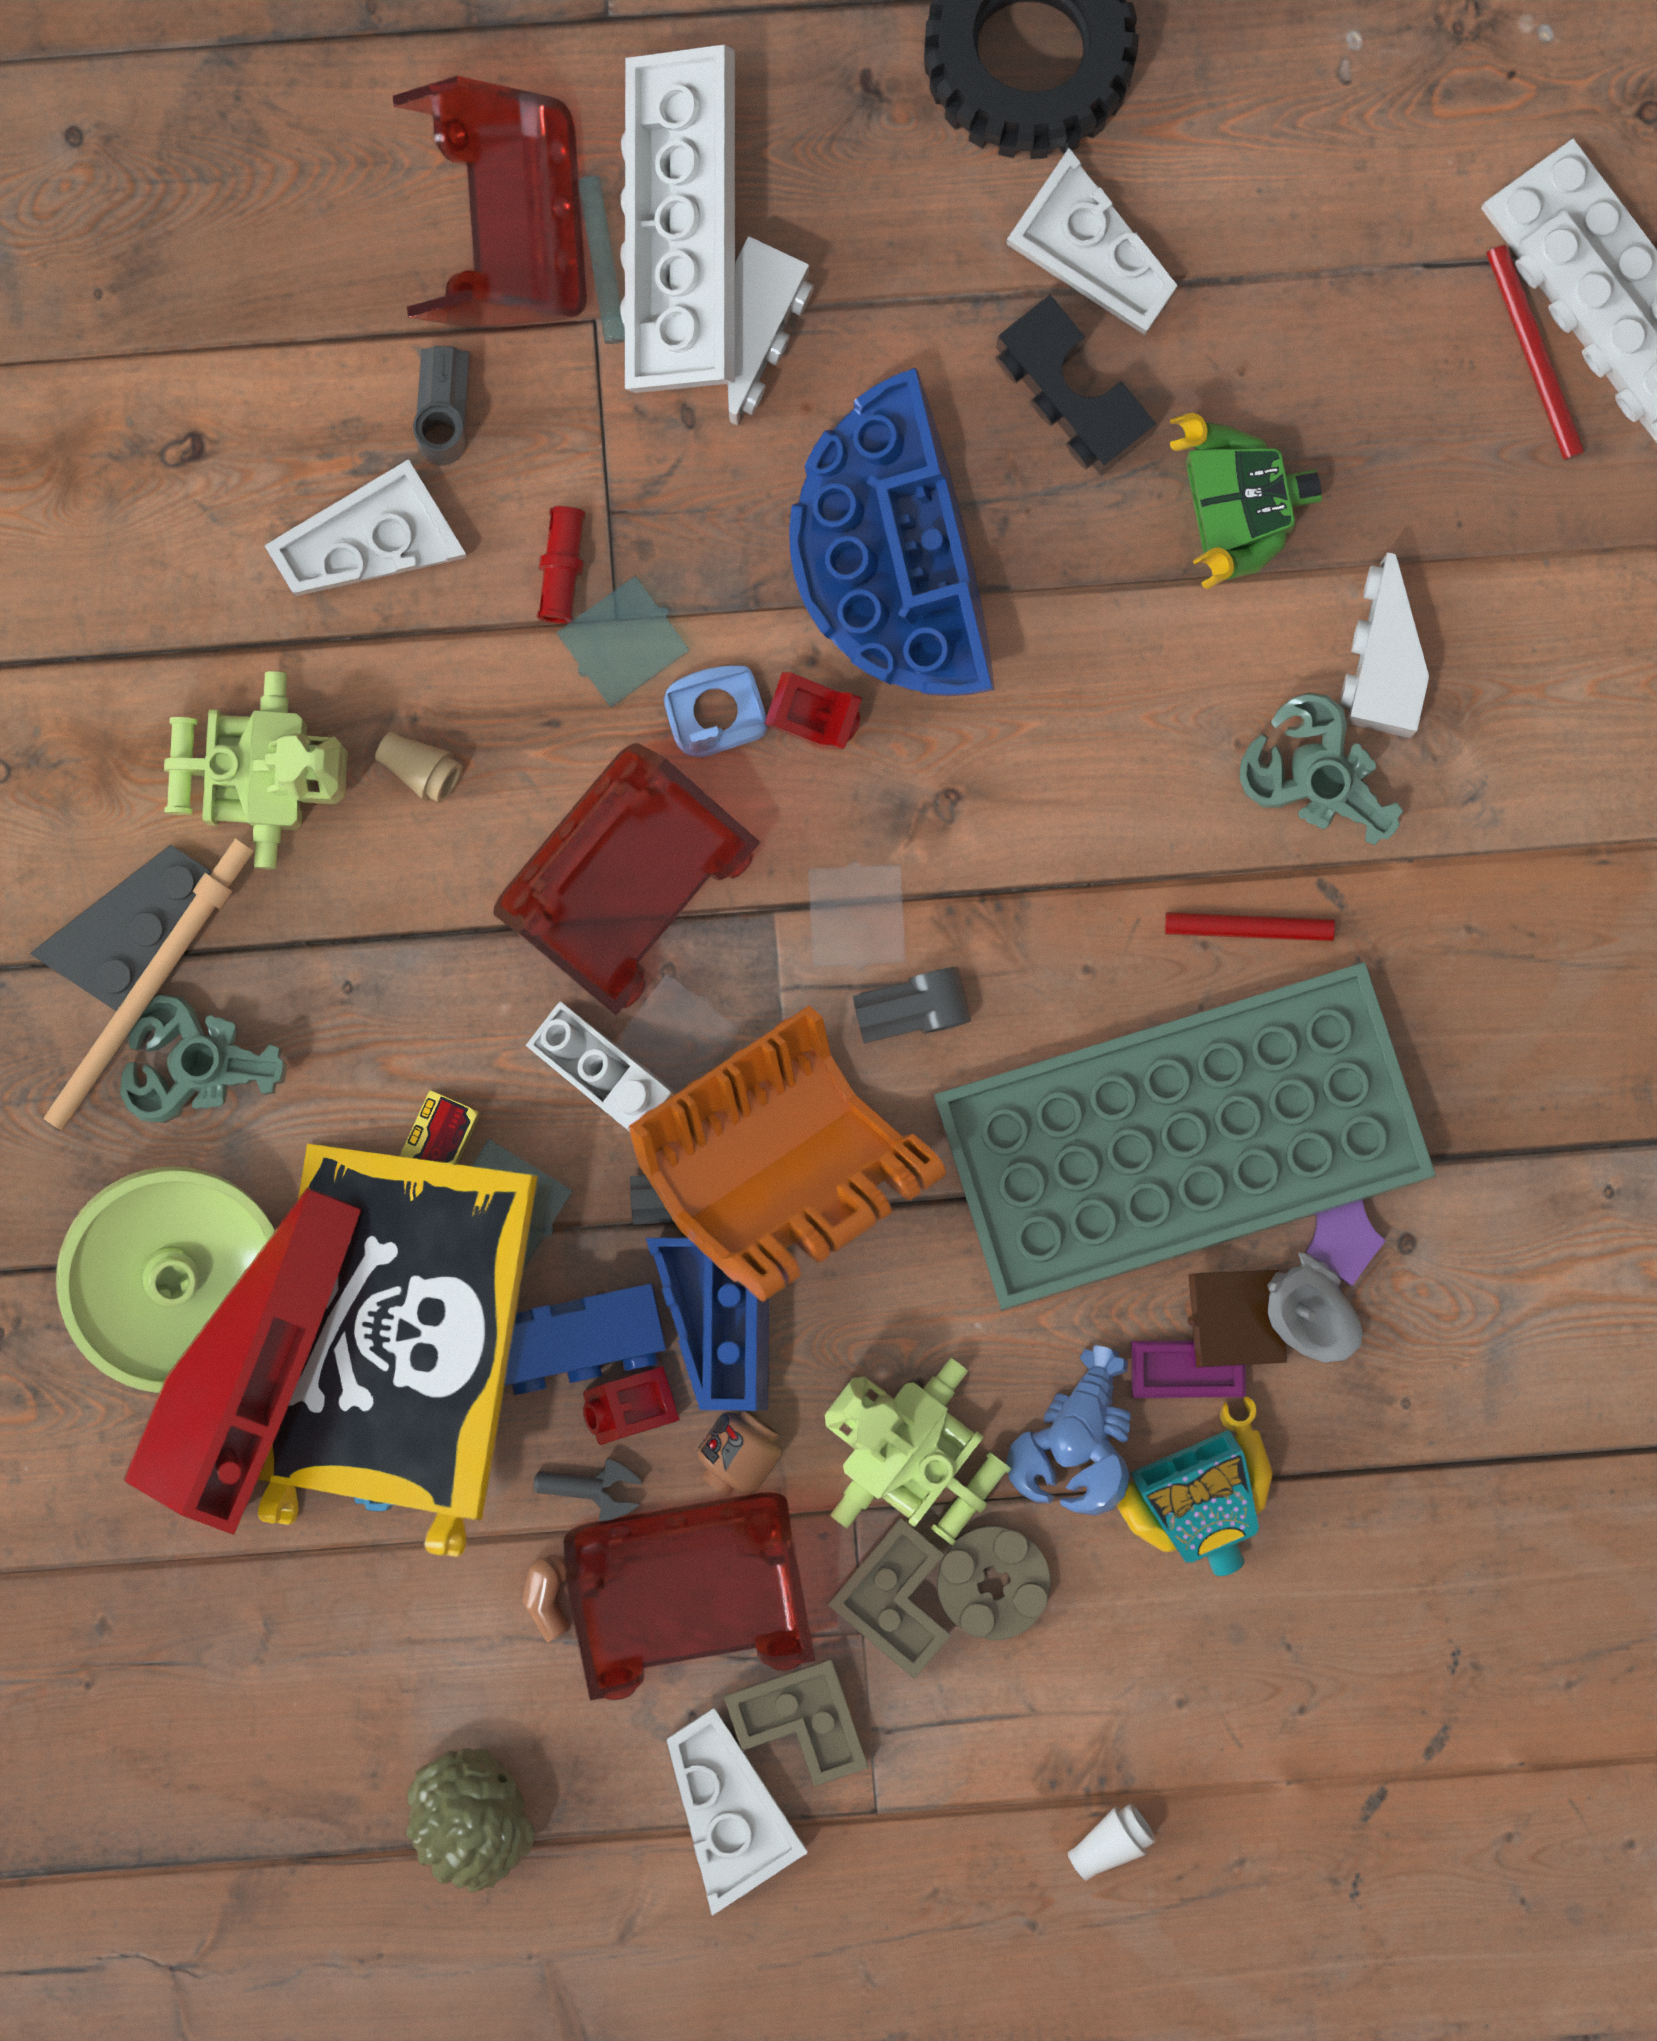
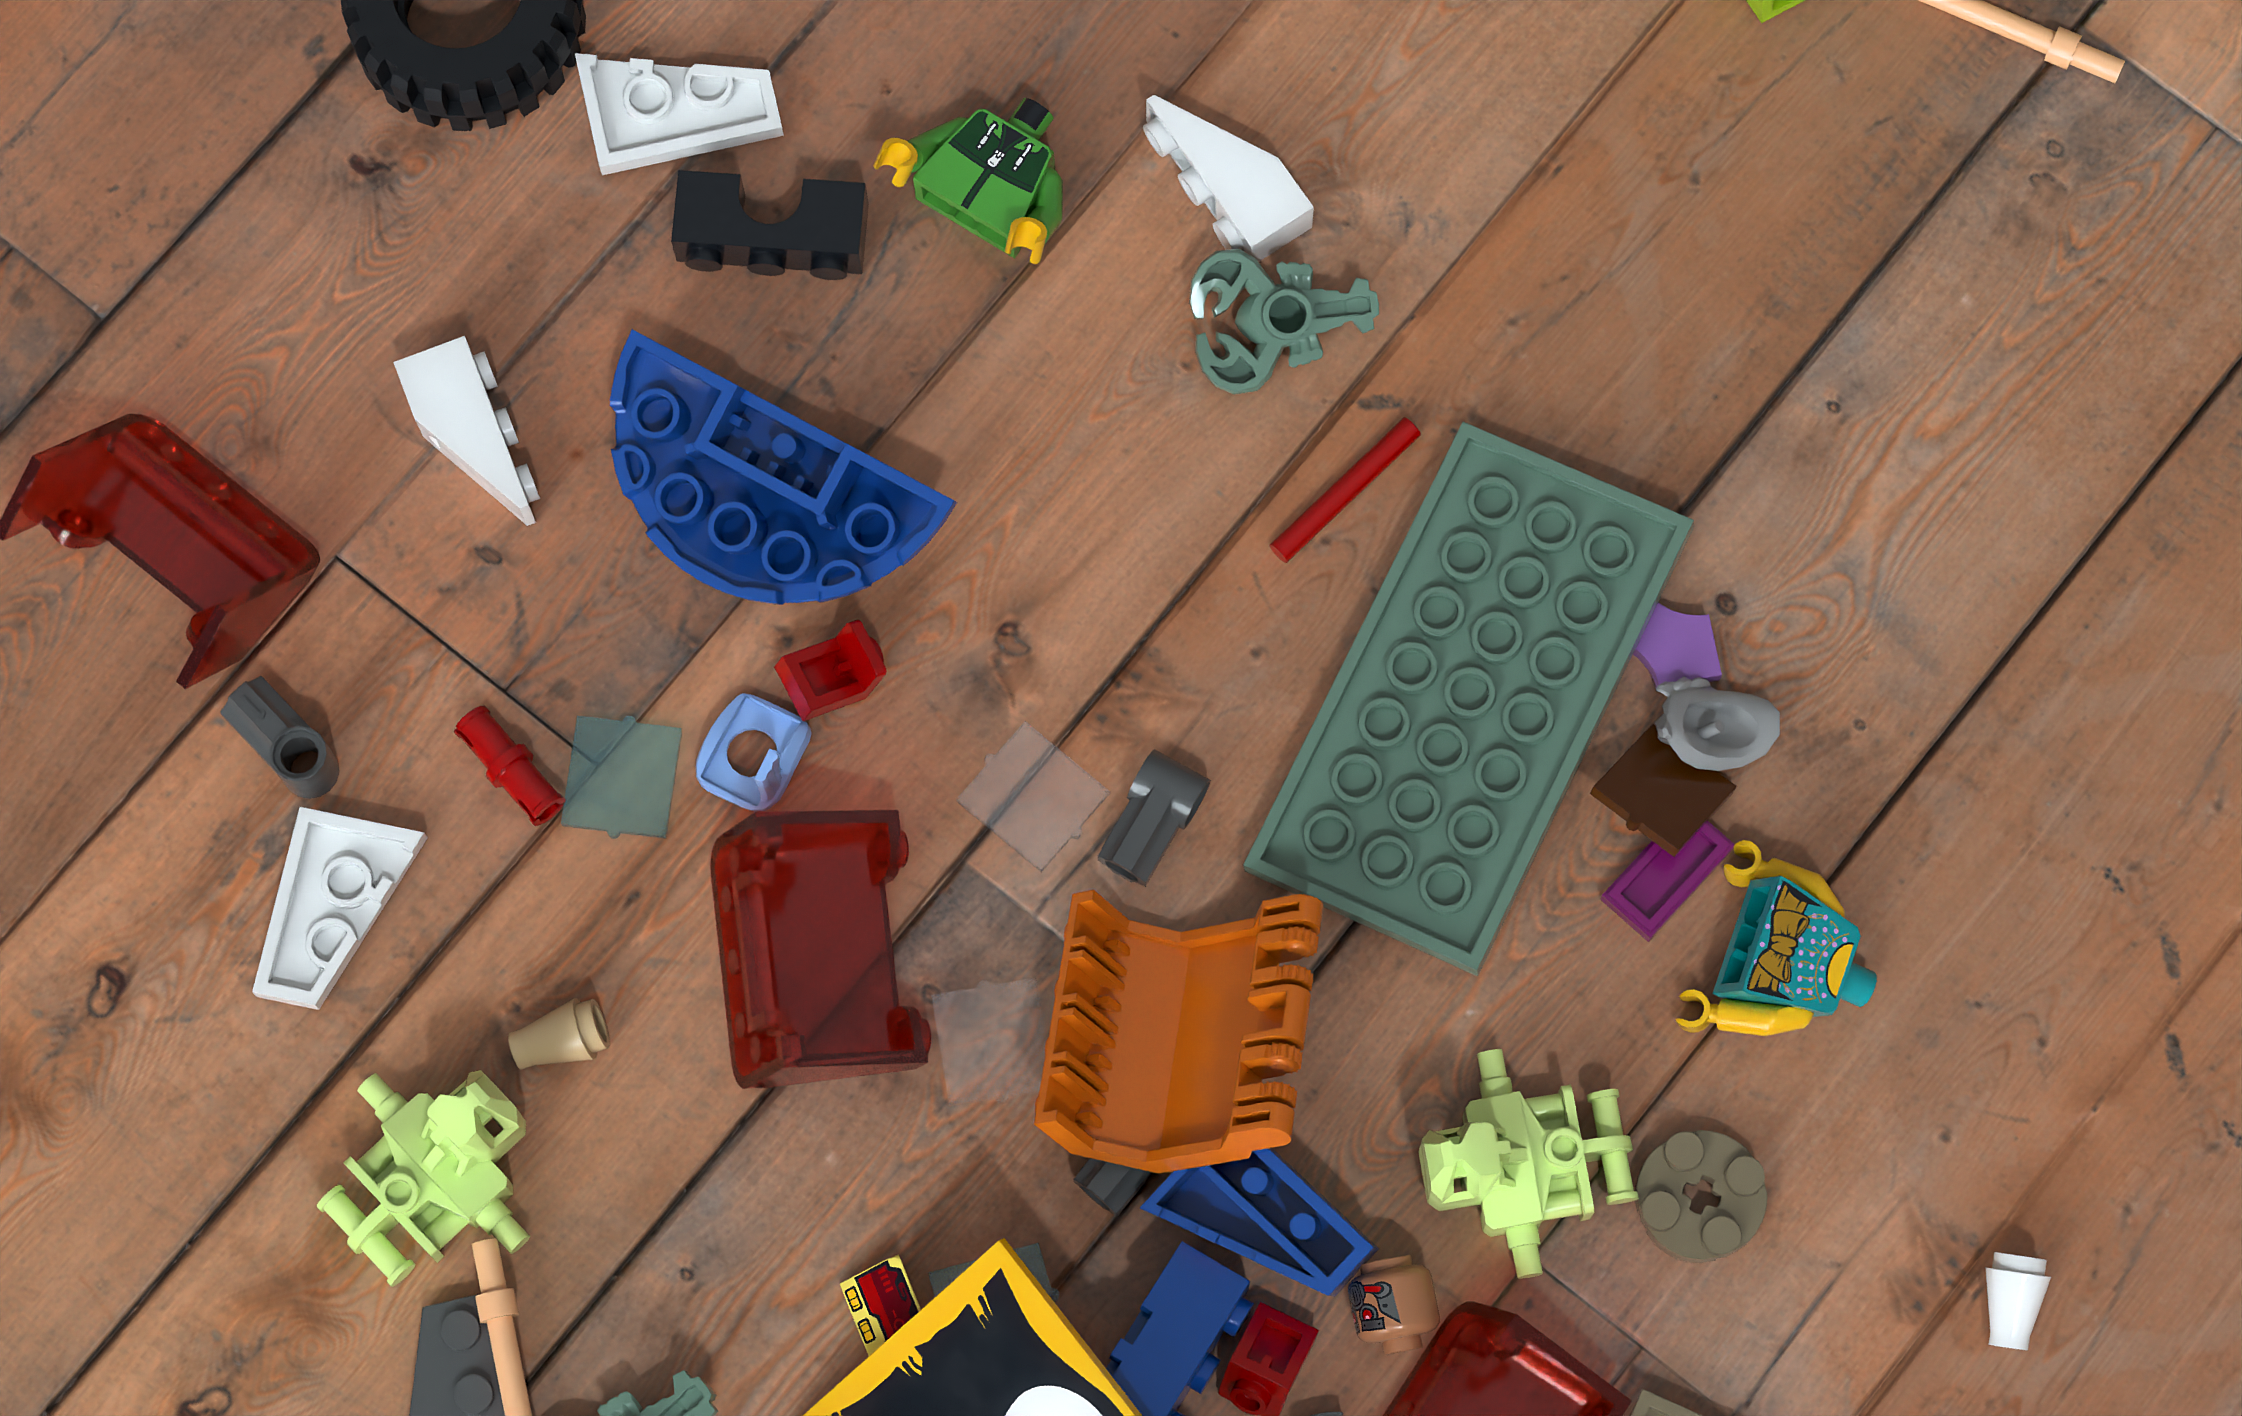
camera: 45 degrees left, 10 degrees down
(582, 1058) = (936, 1128): white slope -> none
(602, 259) = (294, 503): clear light blue bar -> none
(679, 219) = (325, 404): white plate -> none
(879, 1603) = (1626, 1304): dark tan plate -> none
(1077, 1436) = (1642, 1011): medium blue animal -> none

